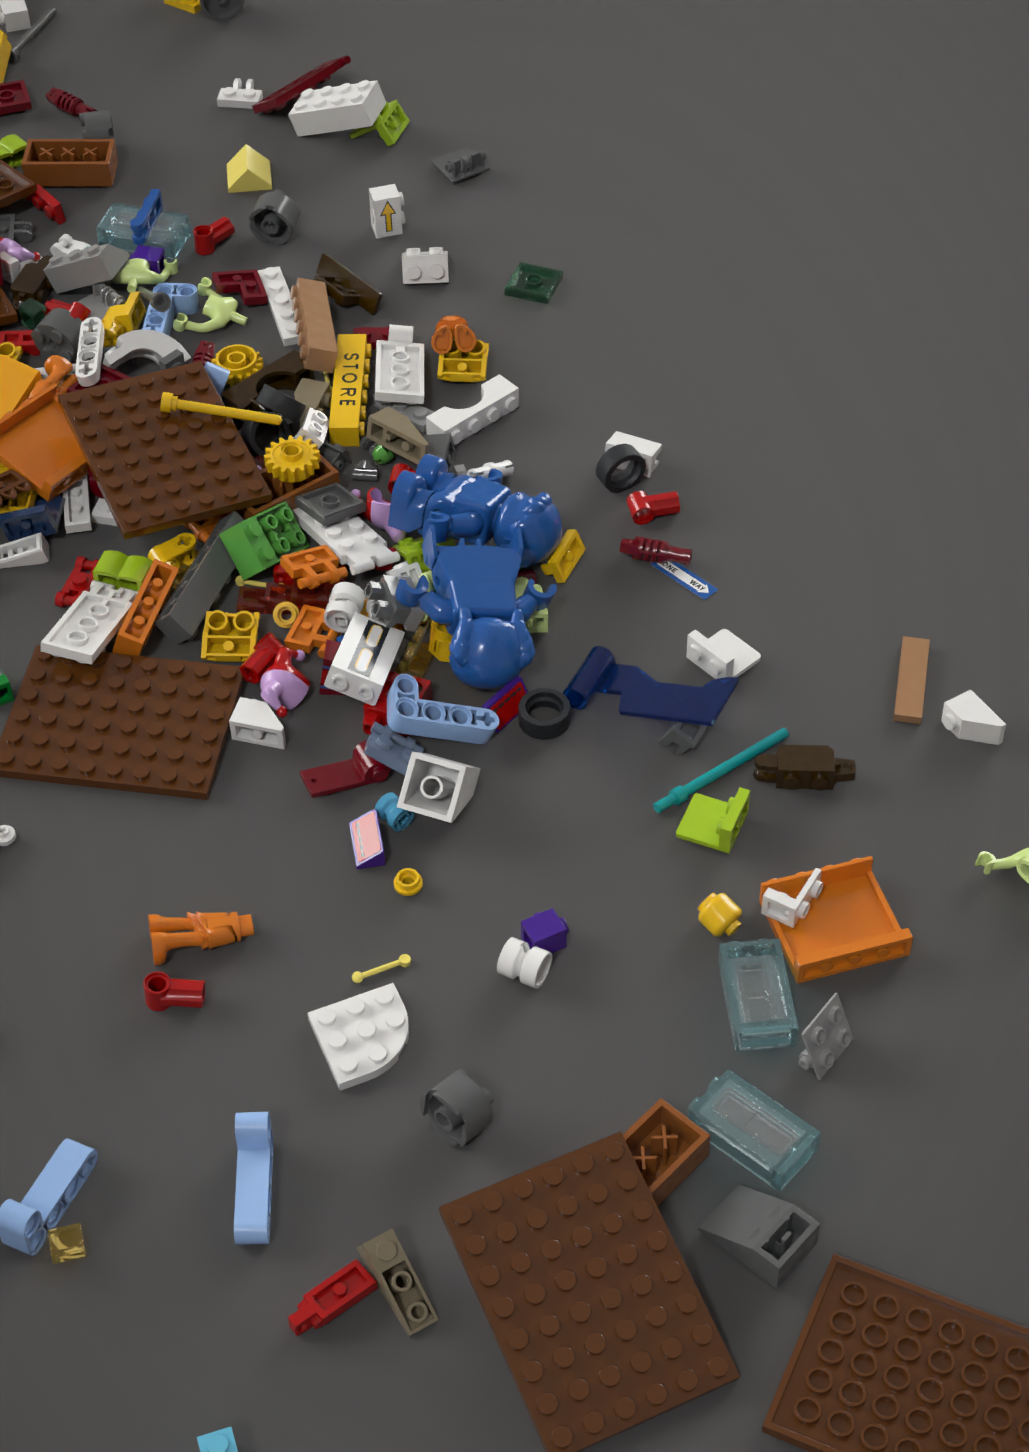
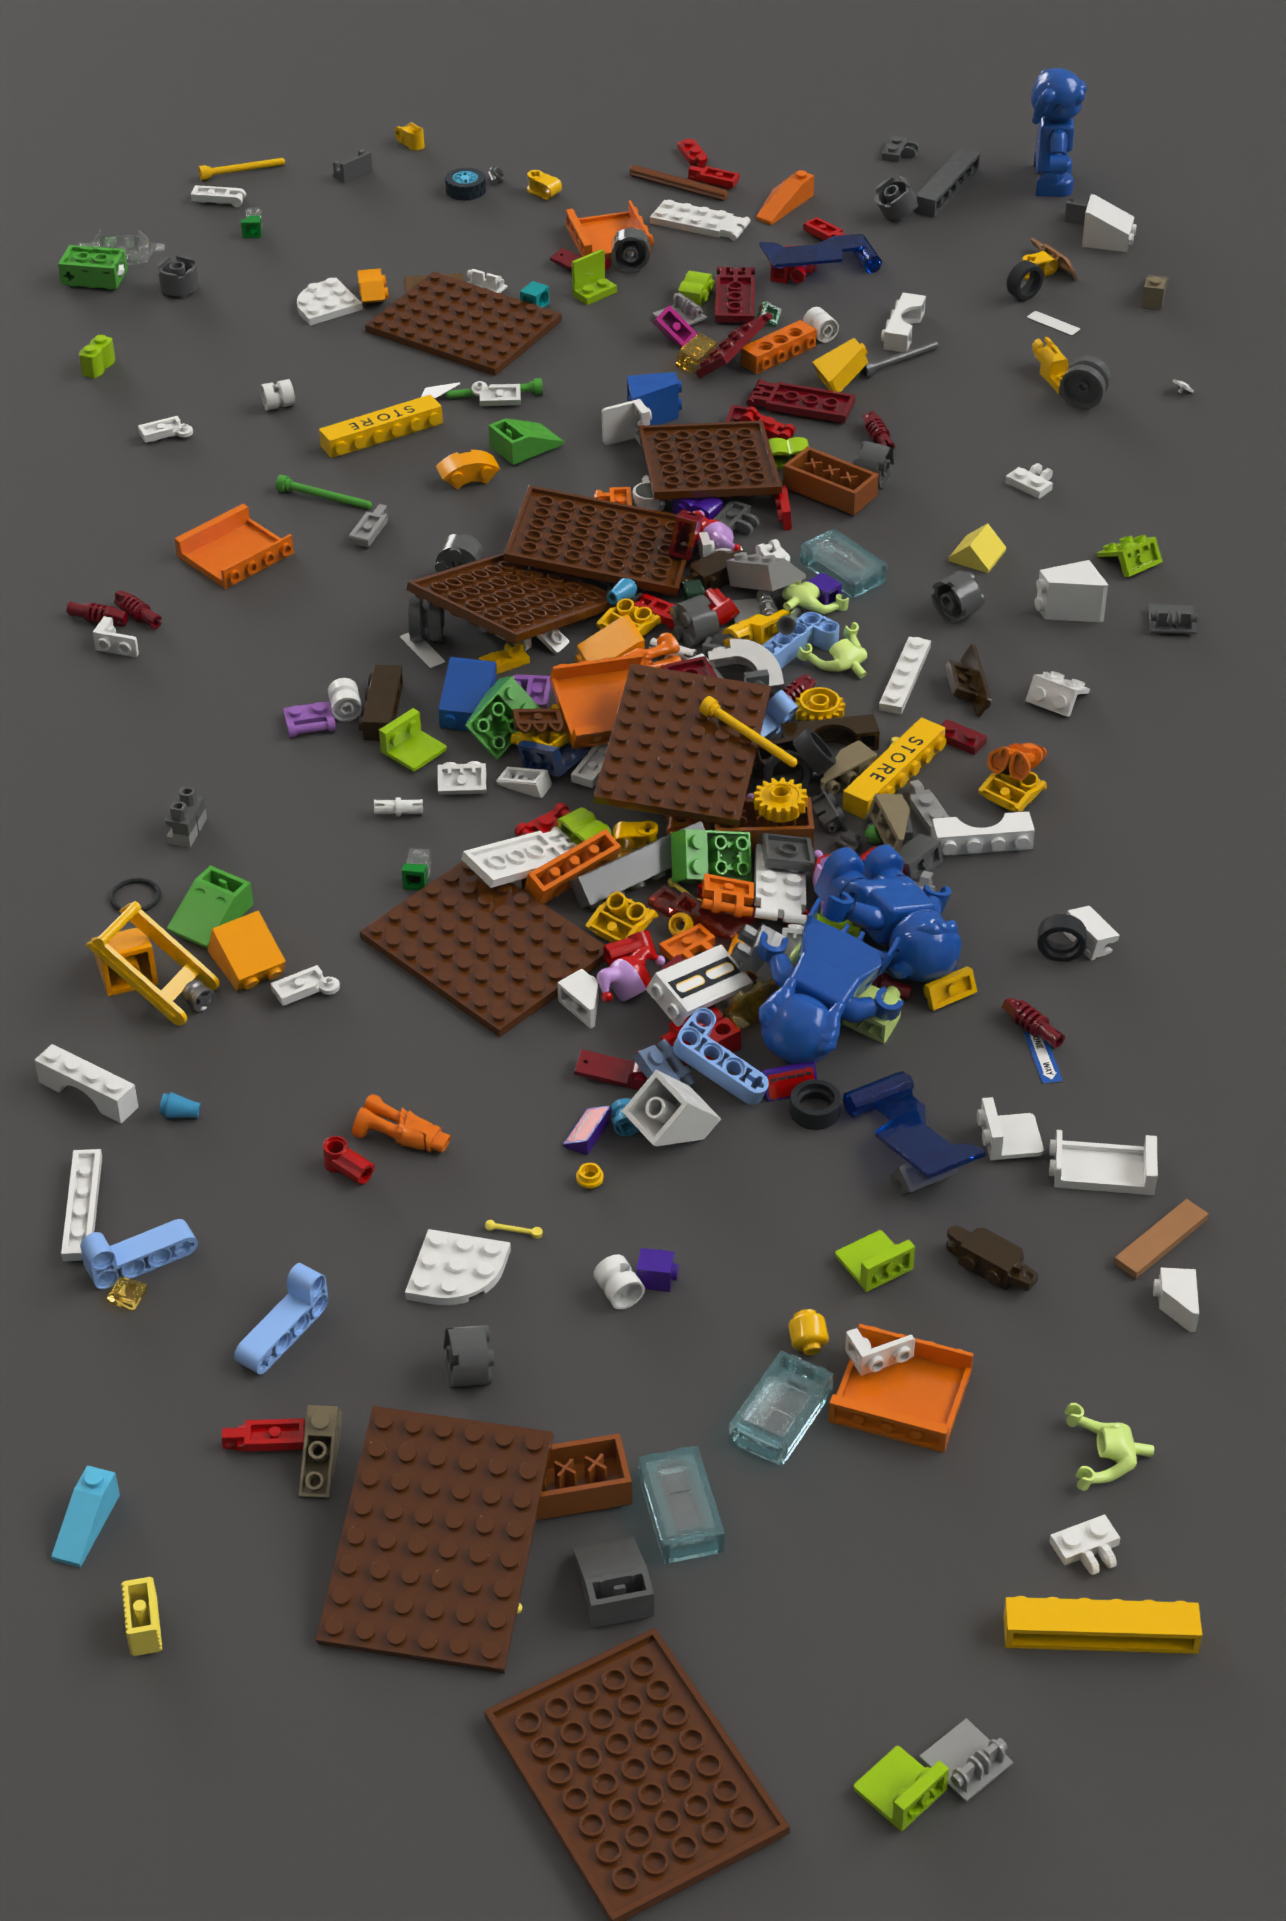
camera: 35 degrees right, 5 degrees down
(90, 351) = (687, 657): white beam -> none
(146, 217) = (845, 551): blue plate -> none
(208, 236) = (890, 590): red piece -> none
(243, 281) = (888, 642): dark red plate -> none
(294, 89) = (1086, 492): dark red hinge -> none
(314, 325) = (906, 700): medium nougat brick -> none
(314, 427) = (826, 786): white bracket -> none
(337, 108) = (1095, 523): white brick -> none
(343, 603) = (723, 933): white wheel -> none
(366, 168) = (1072, 593): none -> white slope
(386, 210) = (1059, 630): white brick -> none
(399, 367) = (949, 768): white hinge -> none
(484, 471) = (958, 891): white pin -> none
(533, 283) = (1142, 749): clear green tile -> none
(645, 507) = (1058, 980): red piece -> none
(680, 793) = (867, 1224): teal bar -> none
(819, 641) = (1104, 1166): none -> white panel
(825, 1038) = (800, 1467): light grey hinge -> none

